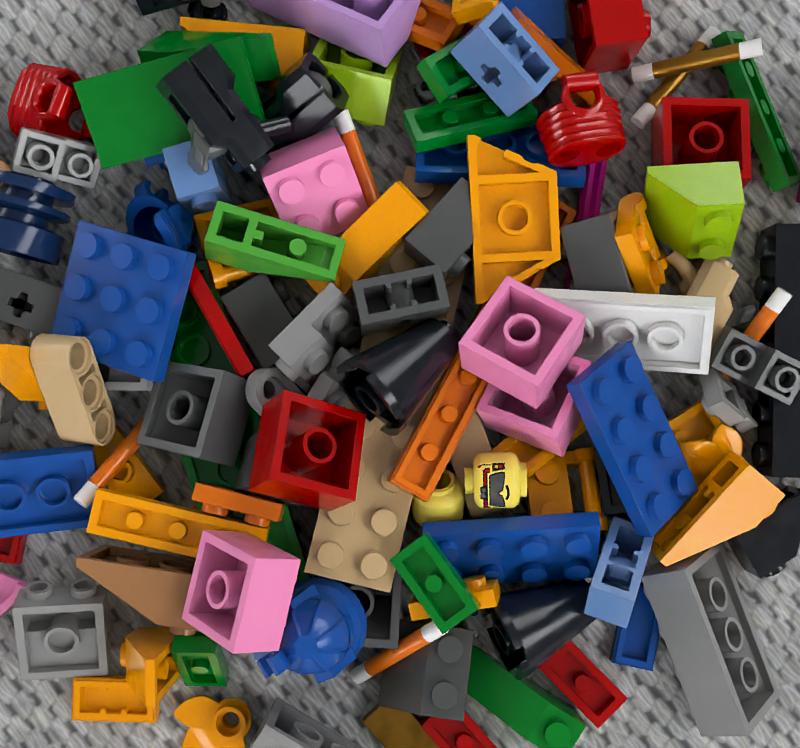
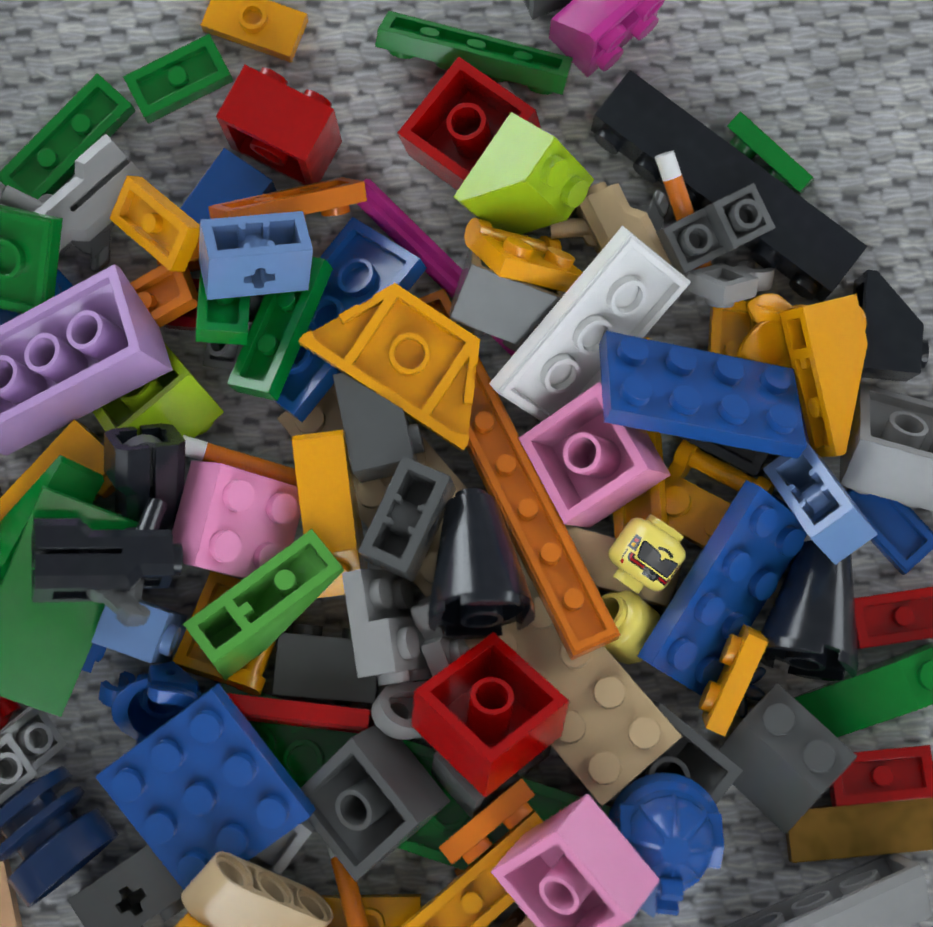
camera: 50 degrees left, 5 degrees down
(388, 657) = (746, 782): orange bar -> none
(435, 583) = (703, 684): green plate -> none
(521, 341) = (532, 433): bright pink brick -> none
(579, 134) = (375, 238): red piece -> none
(671, 83) = (385, 103): bar -> none
(697, 60) = (385, 75): pearl gold bar -> none

